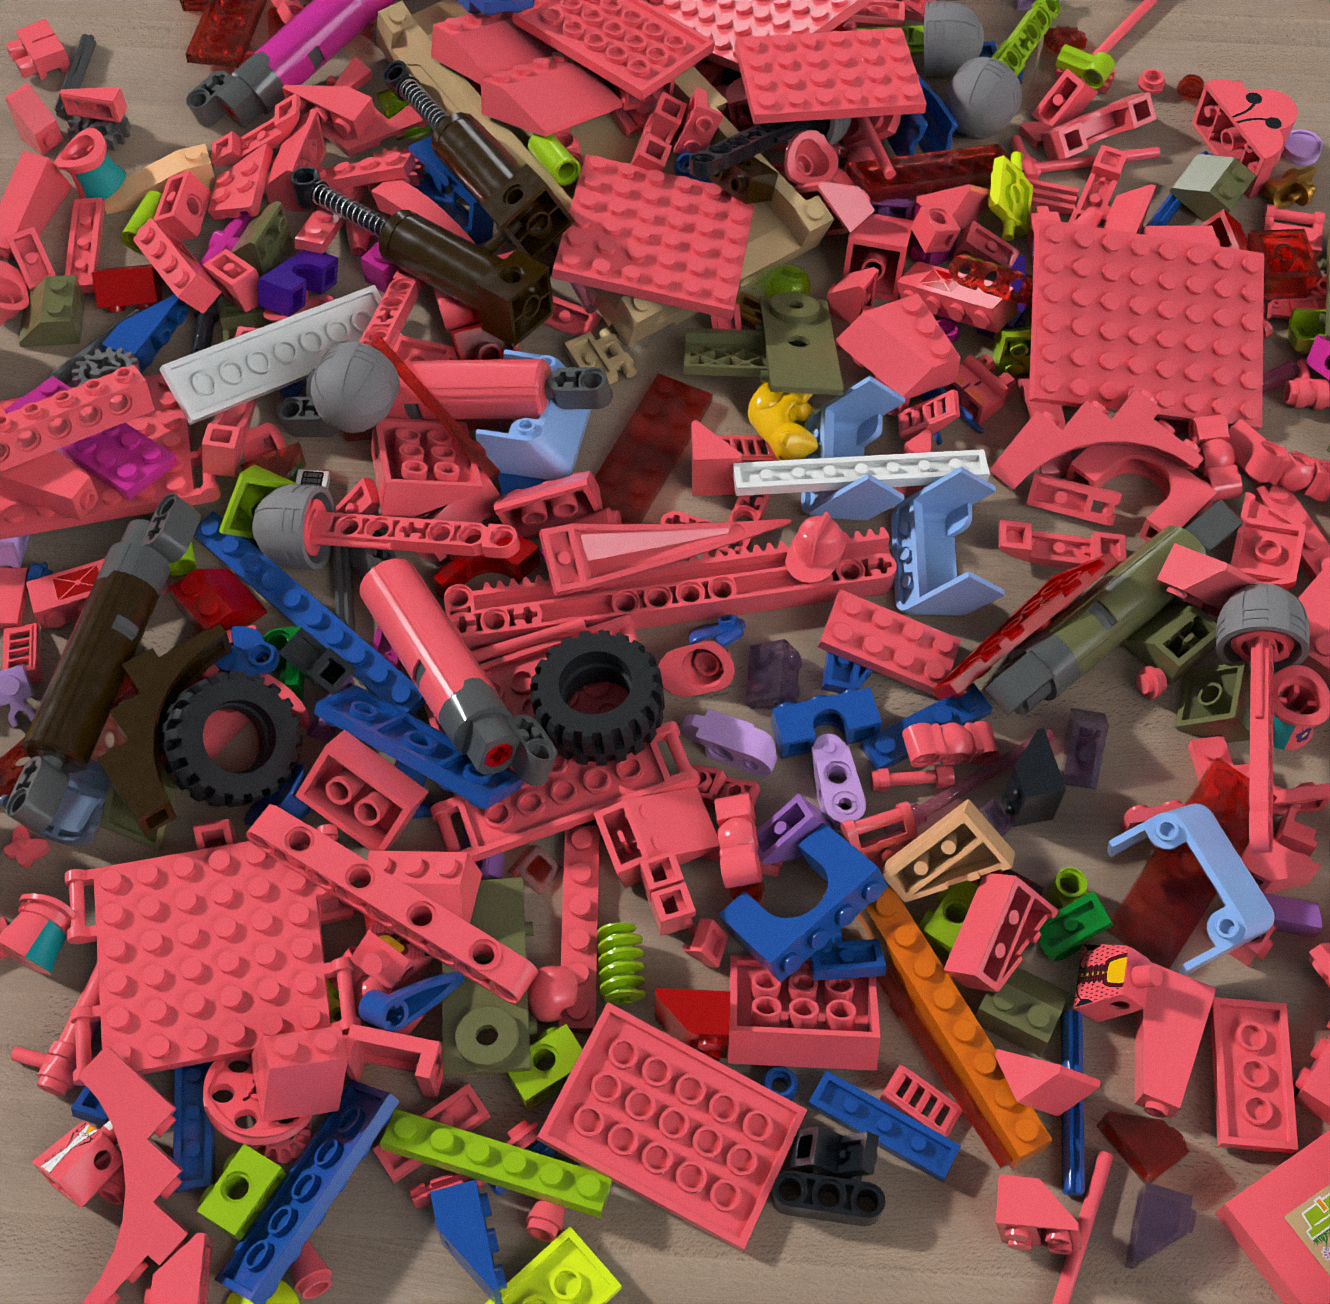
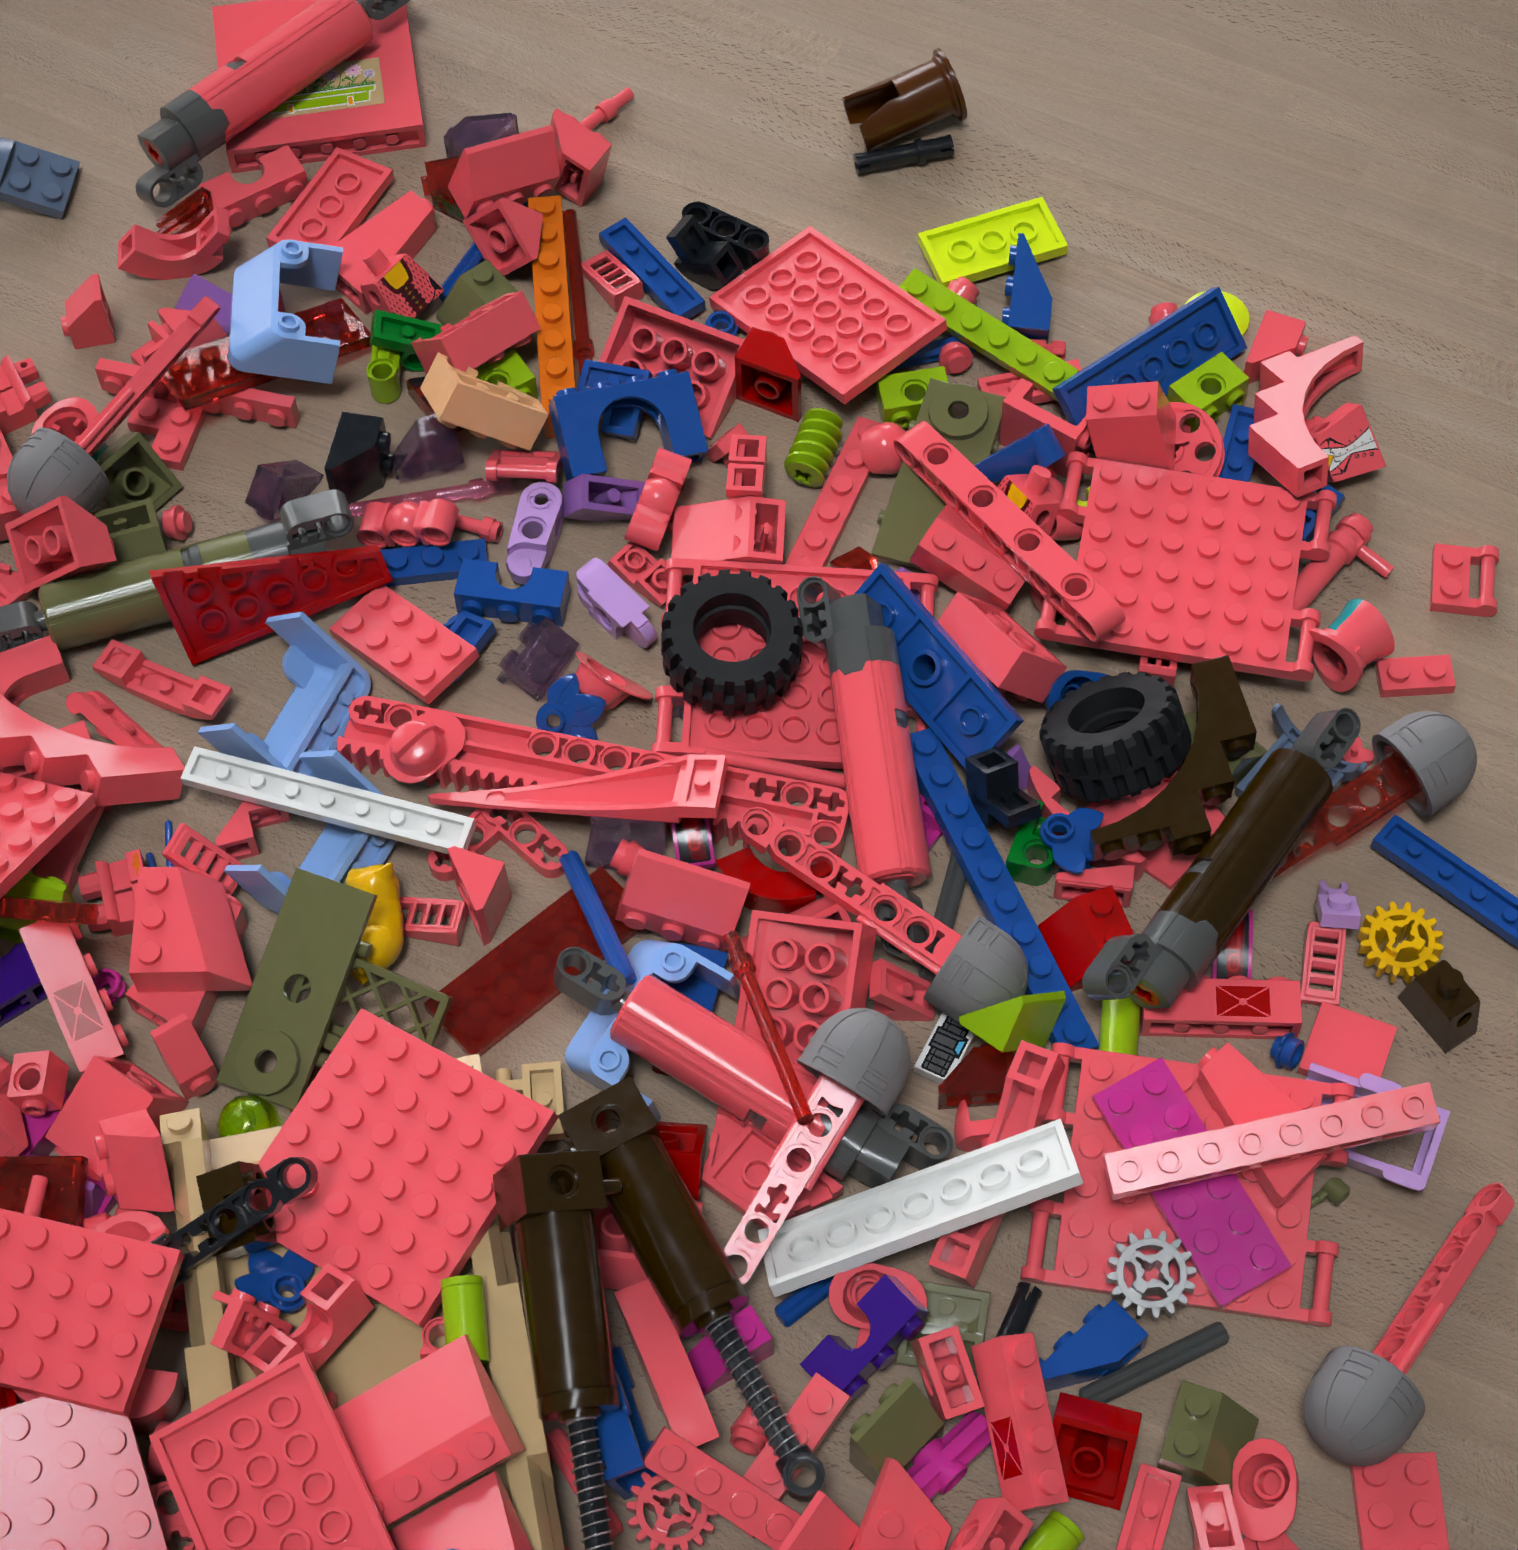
camera: 155 degrees left, 0 degrees up
(606, 464) = (596, 915): none -> blue axle
(1088, 1146) = (507, 168): none -> coral slope

